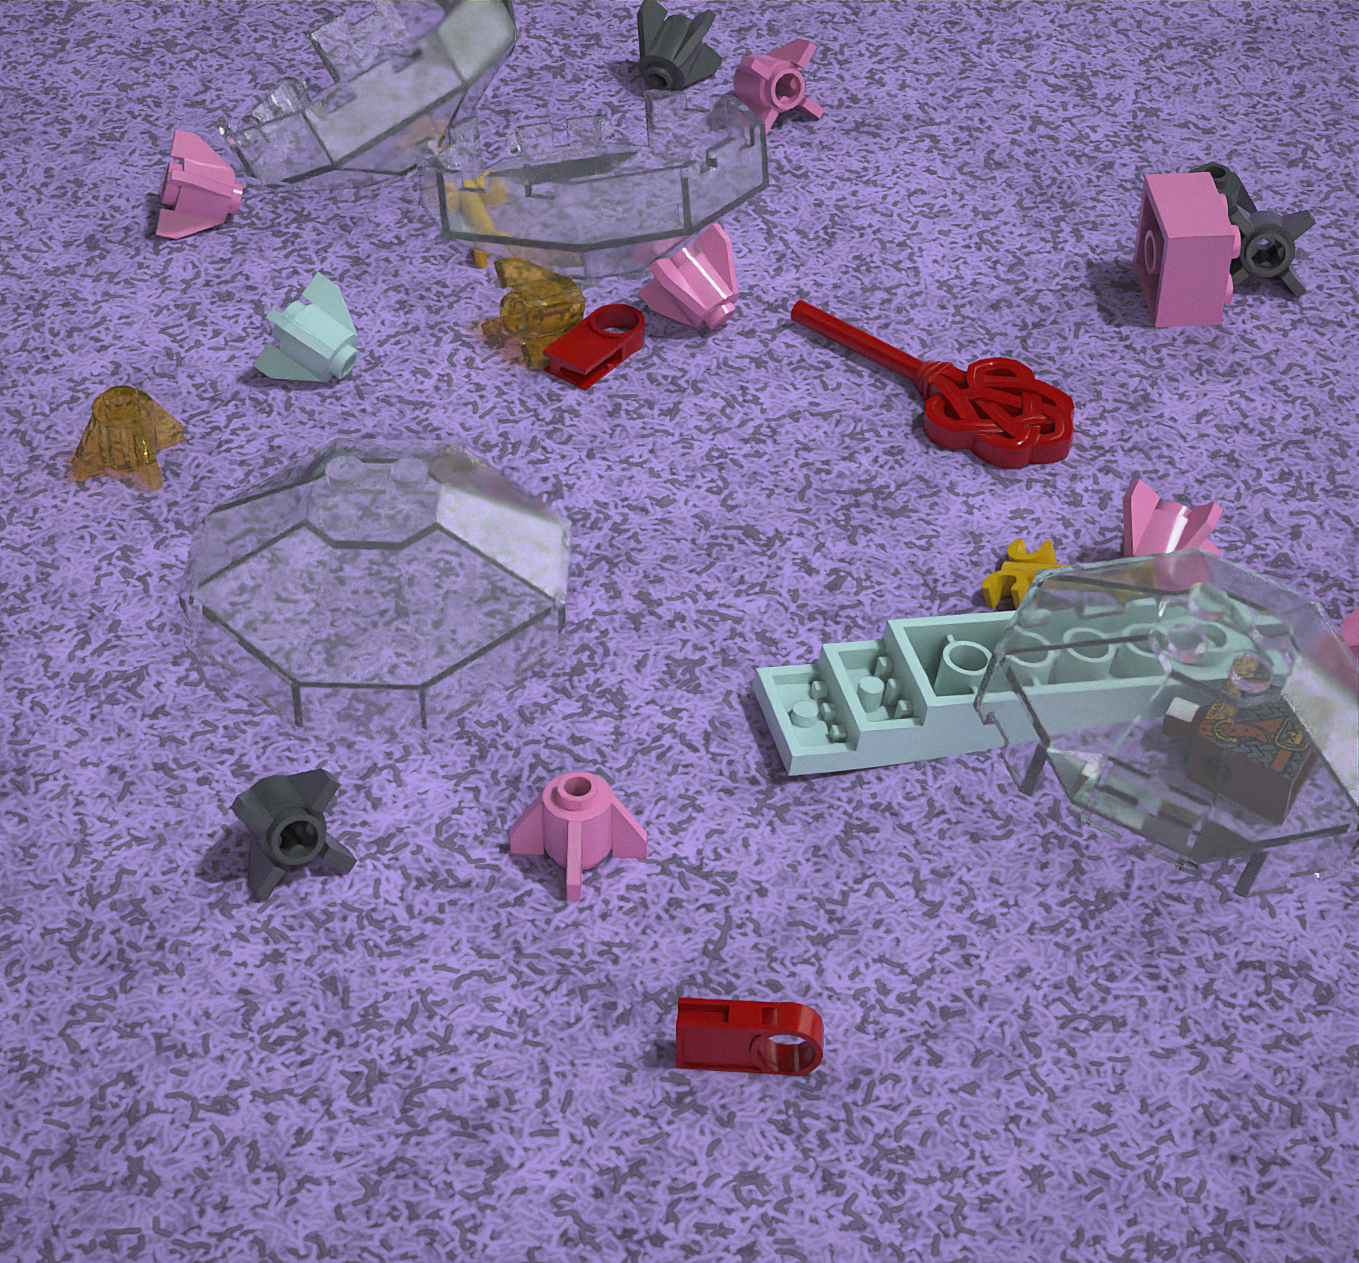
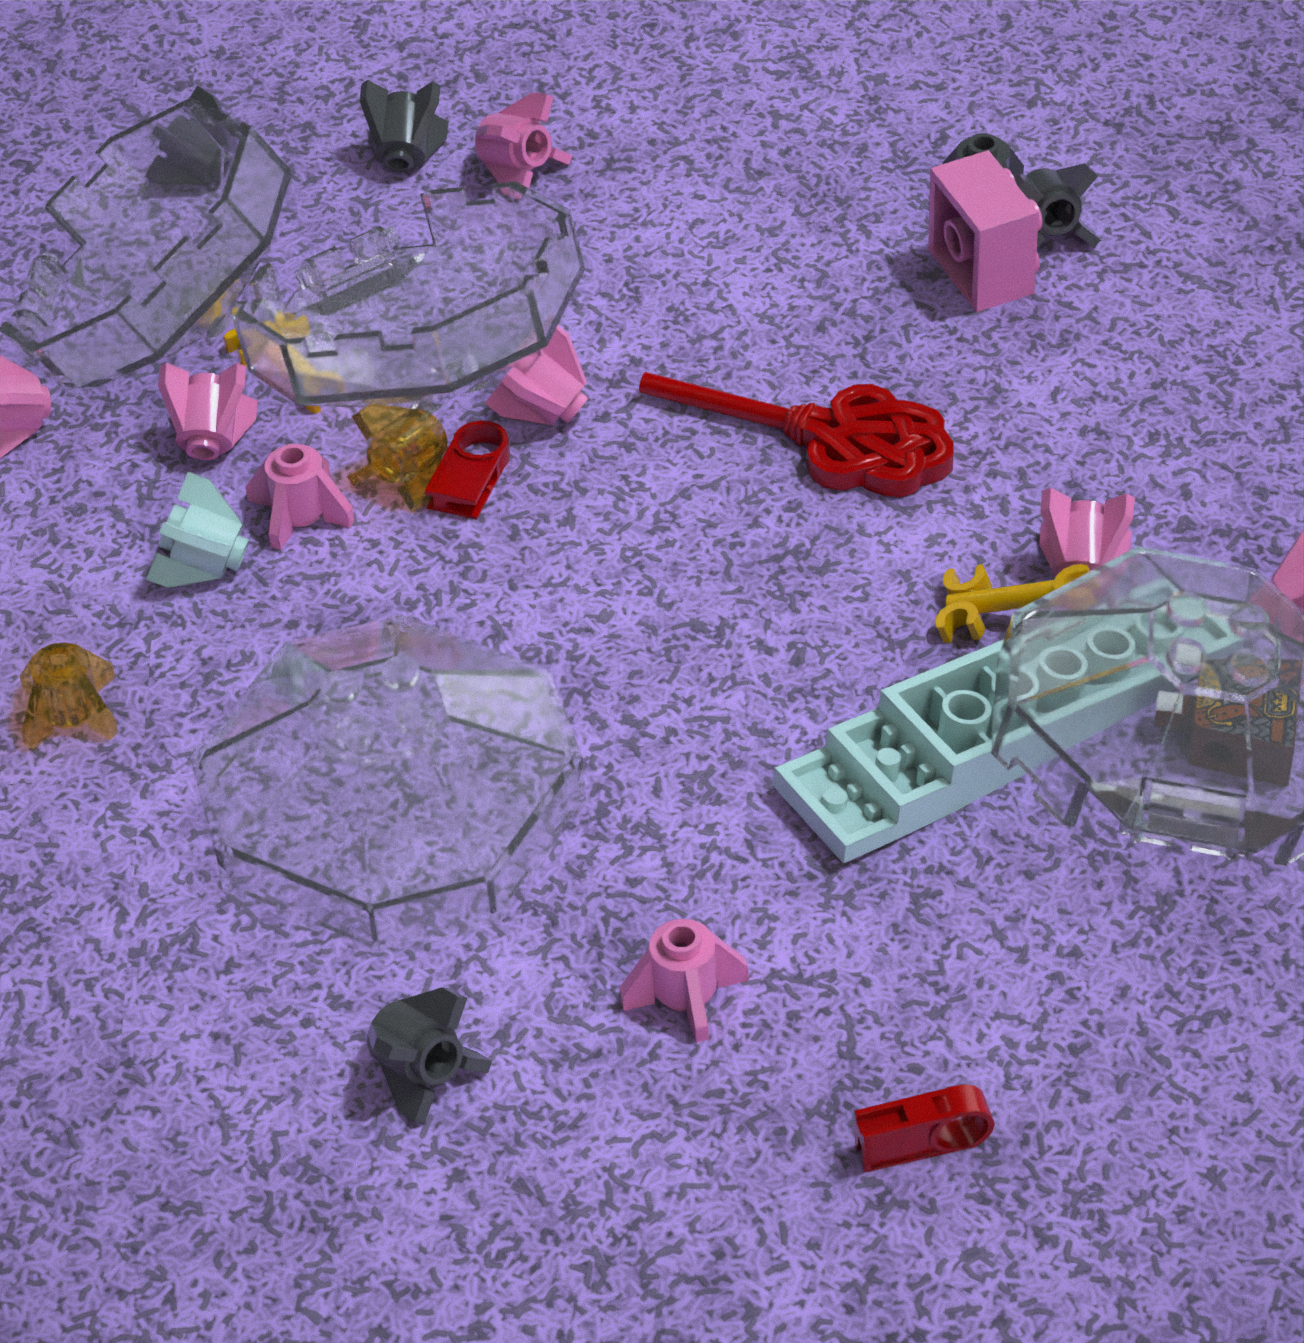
camera: 15 degrees left, 5 degrees up
(374, 236) = (207, 409): none -> bright pink brick
(424, 322) = (298, 490): none -> bright pink brick

